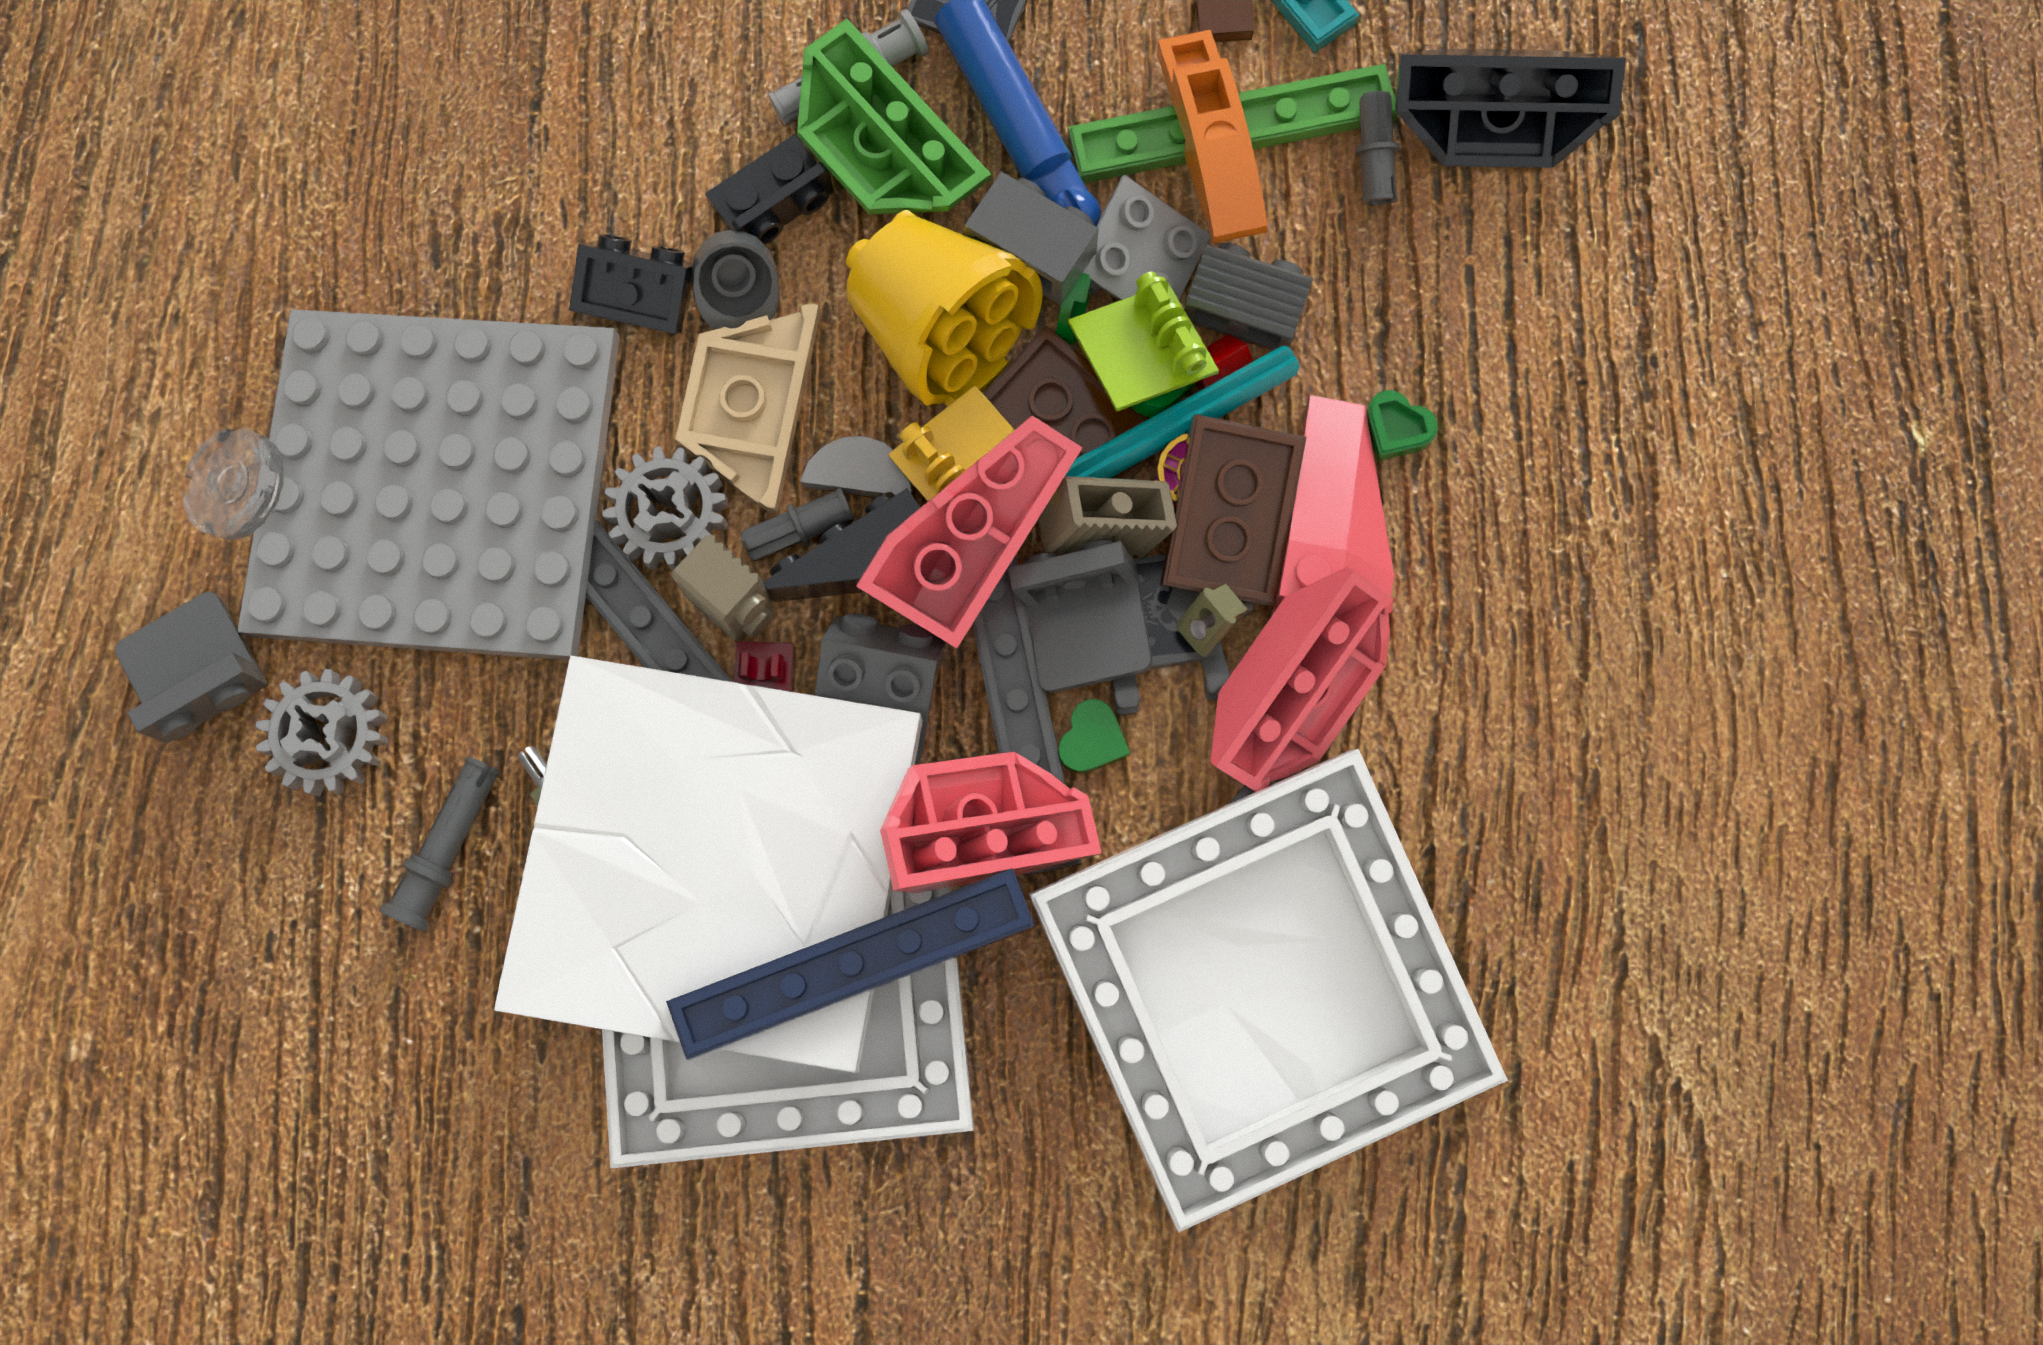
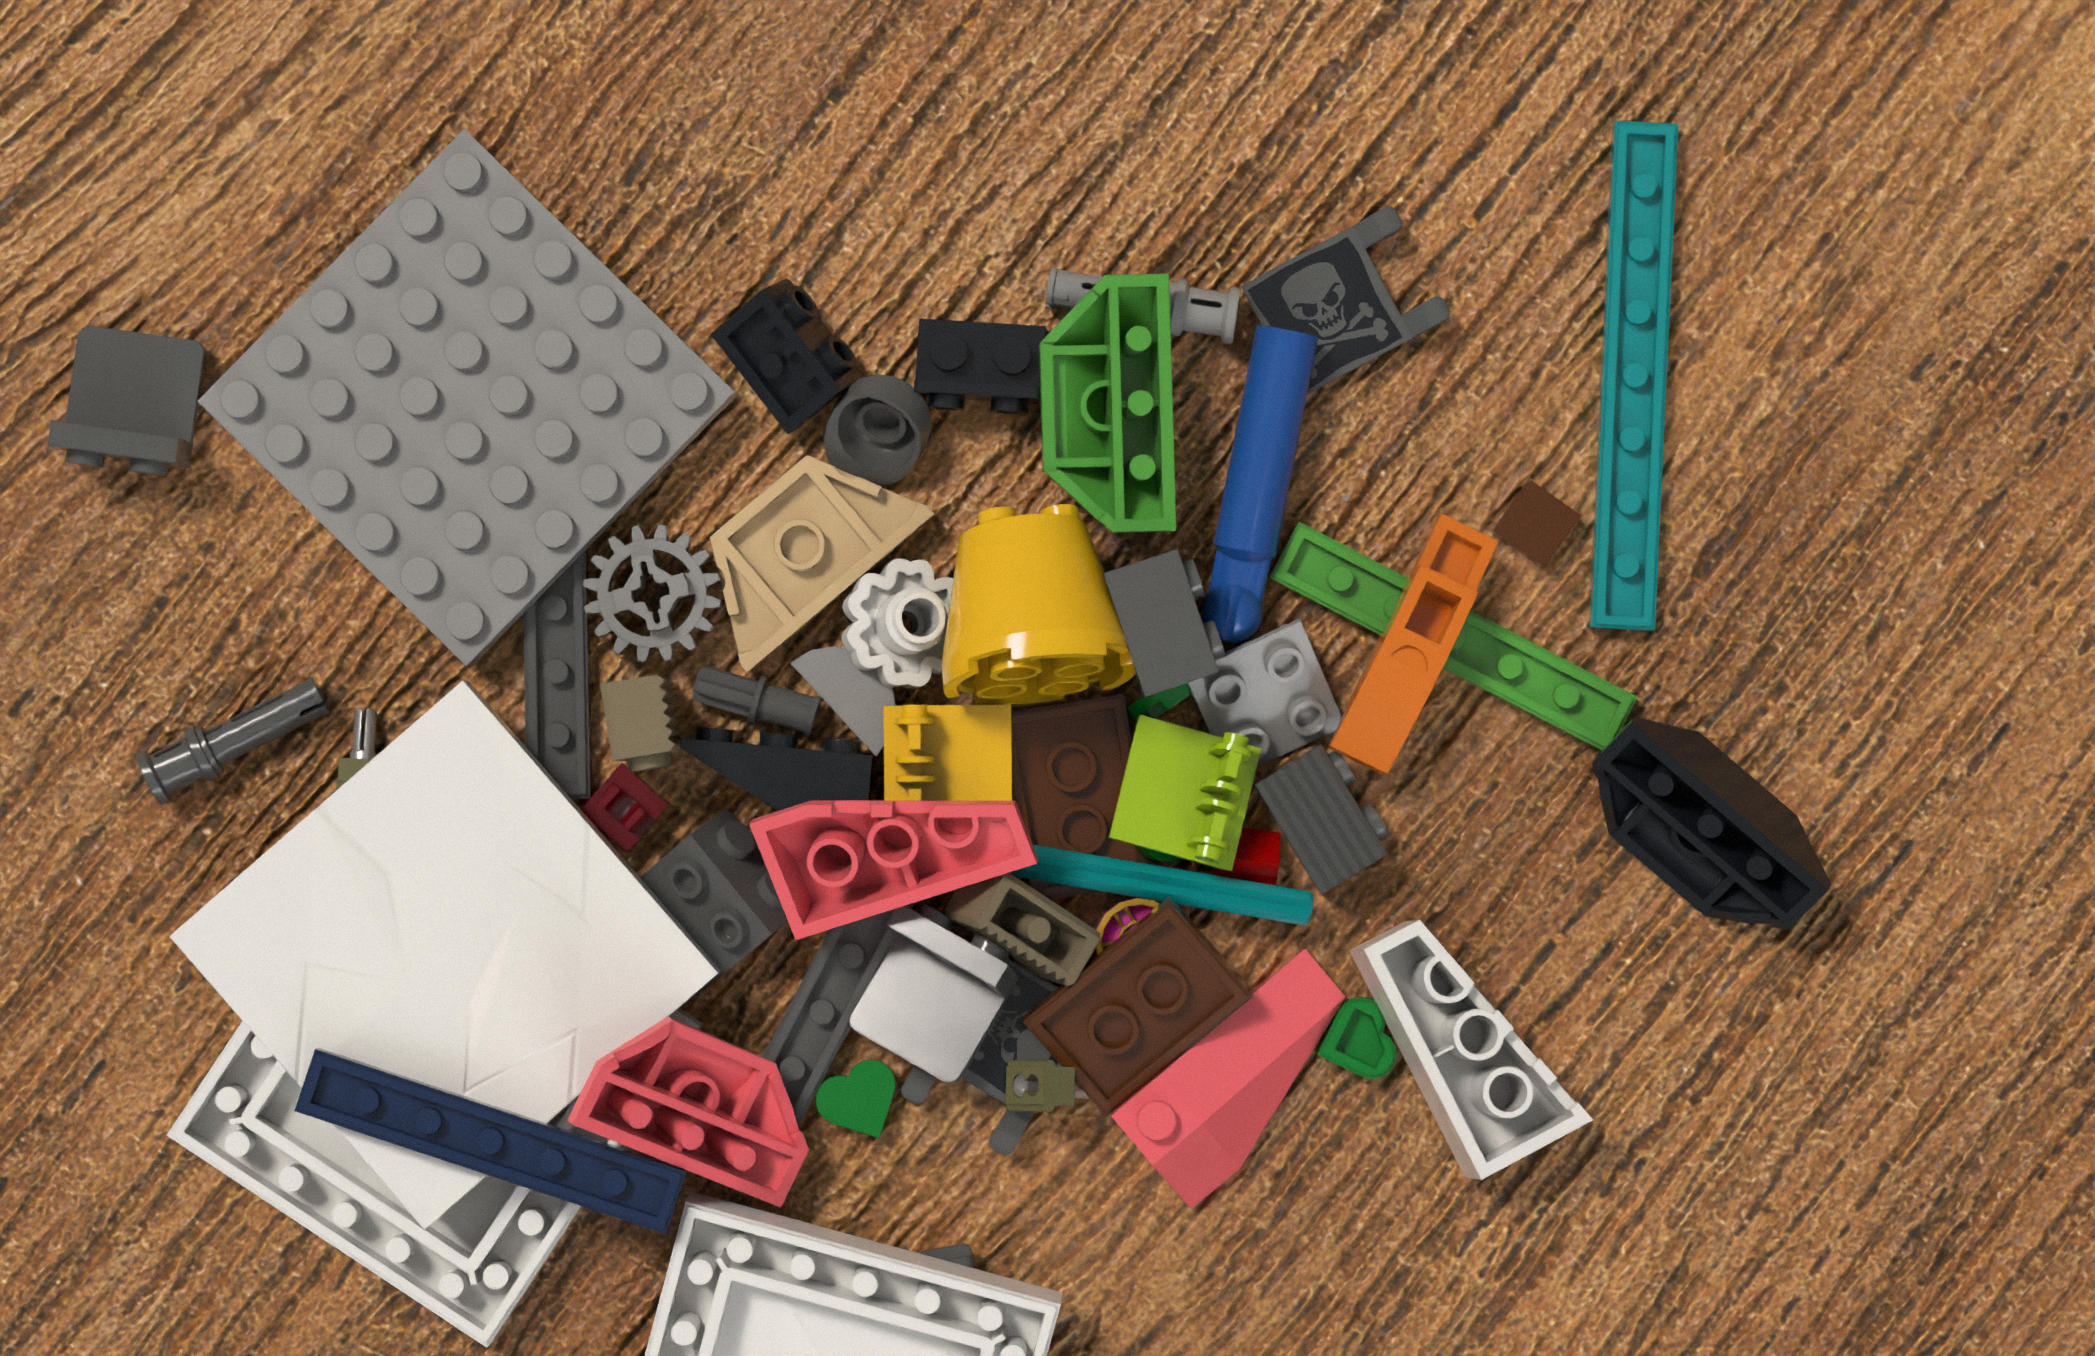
camera: 30 degrees right, 10 degrees up
(233, 483) = (292, 260): clear tile -> none
(295, 733) = (203, 526): light grey gear -> none
(856, 394) = (877, 629): none -> white plant
(1301, 679) = (1065, 1202): coral wedge -> none
(1377, 149) = (1555, 775): dark grey axle -> none
(1477, 369) = (1463, 1053): none -> white wedge

